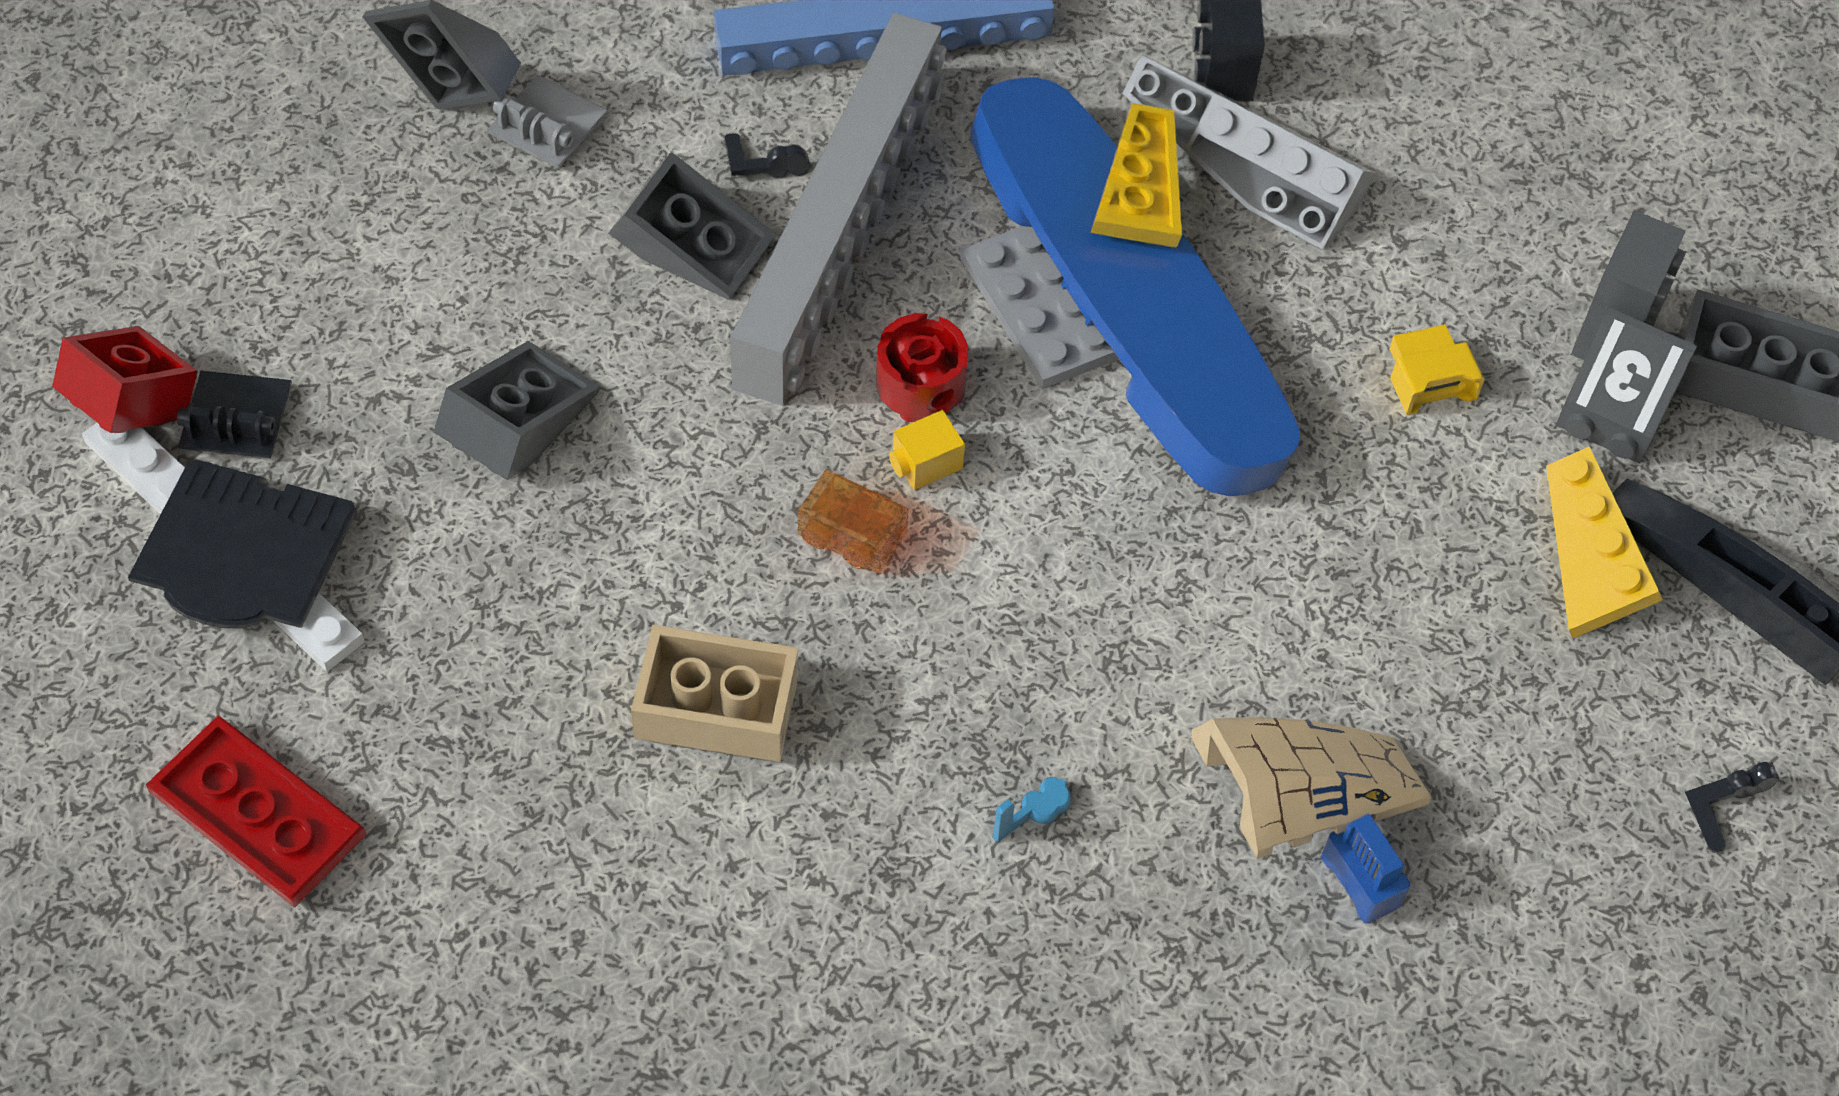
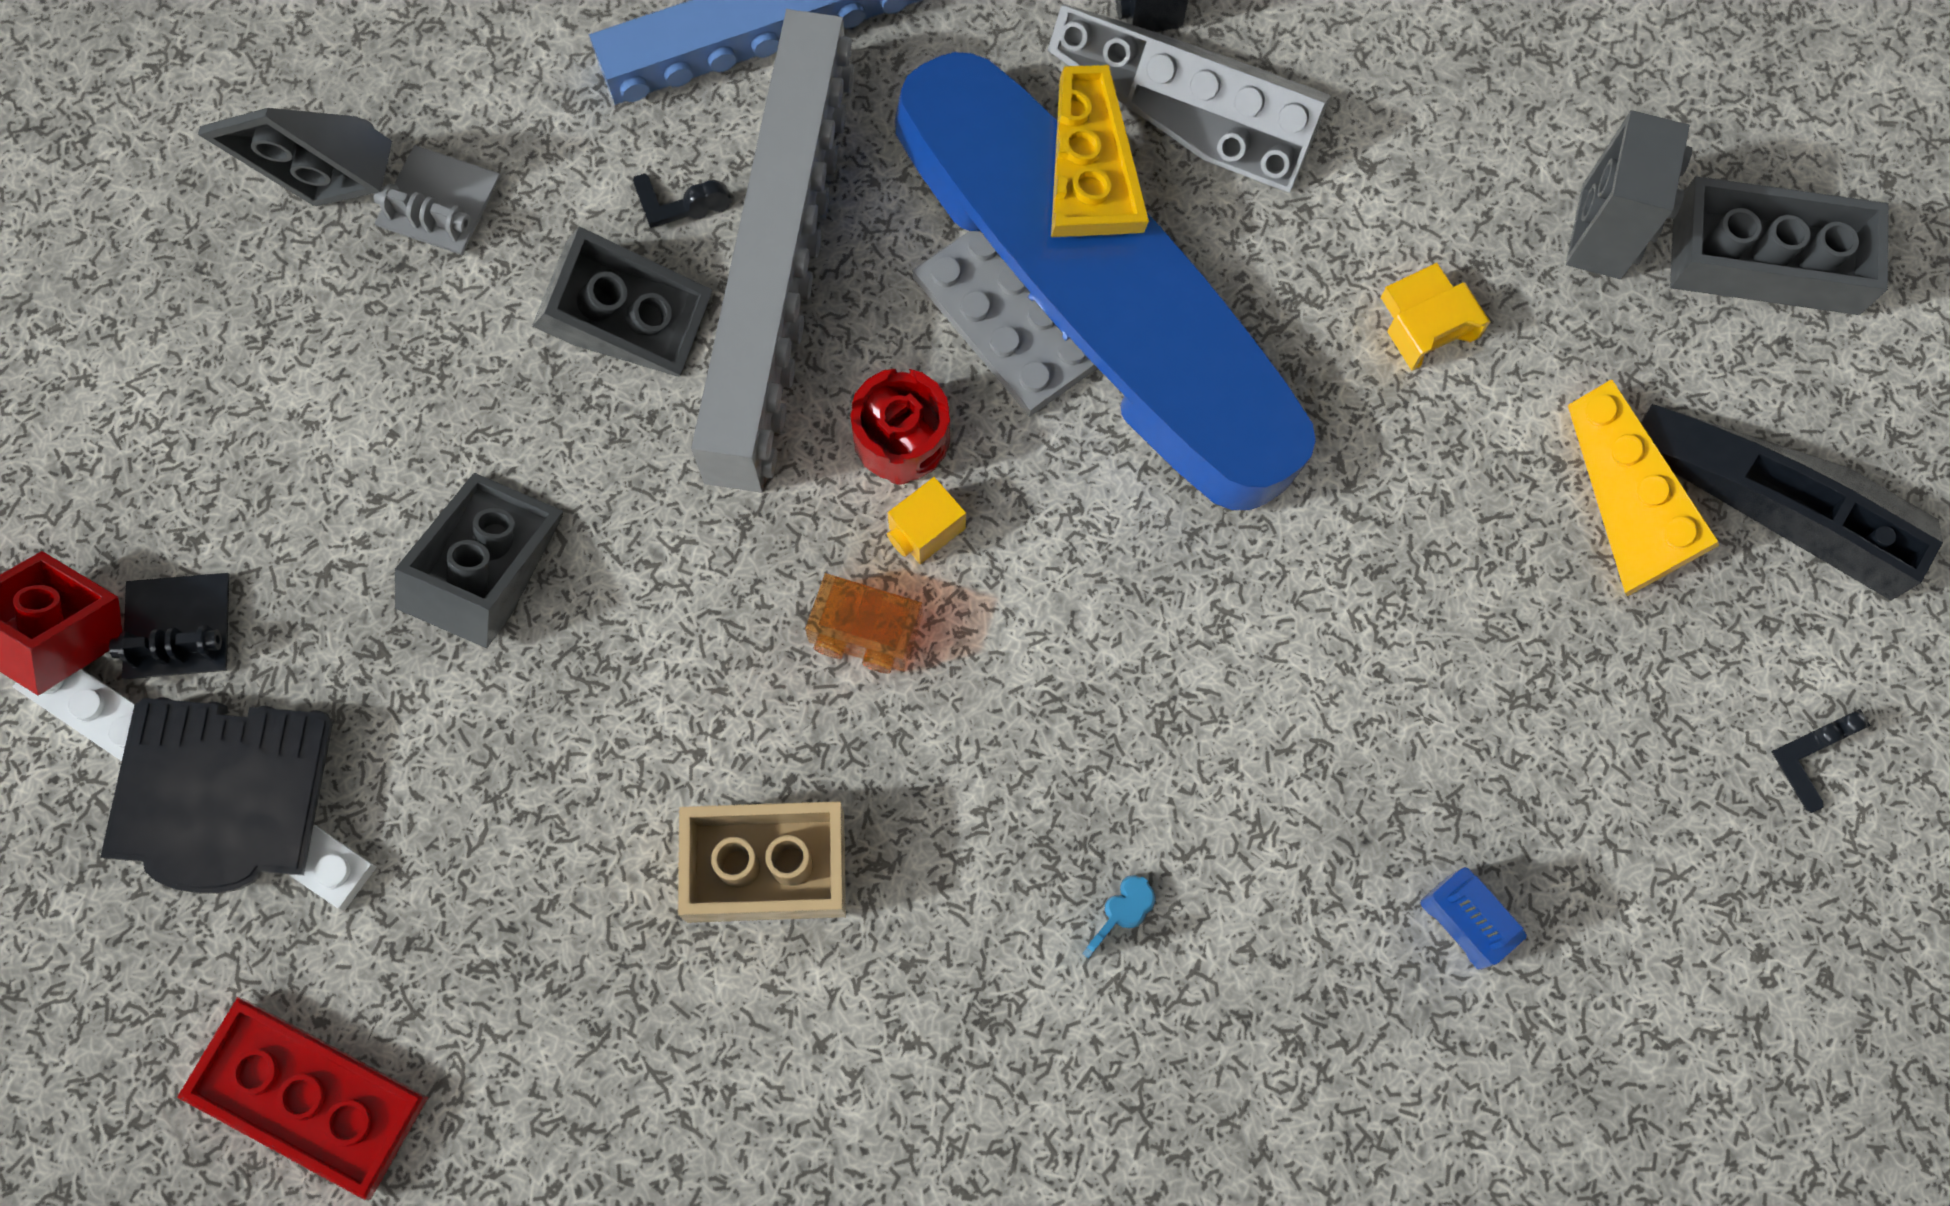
camera: 10 degrees left, 15 degrees up
(1308, 776) = (1400, 834): tan wedge -> none
(1625, 385) = (1642, 307): dark grey slope -> none

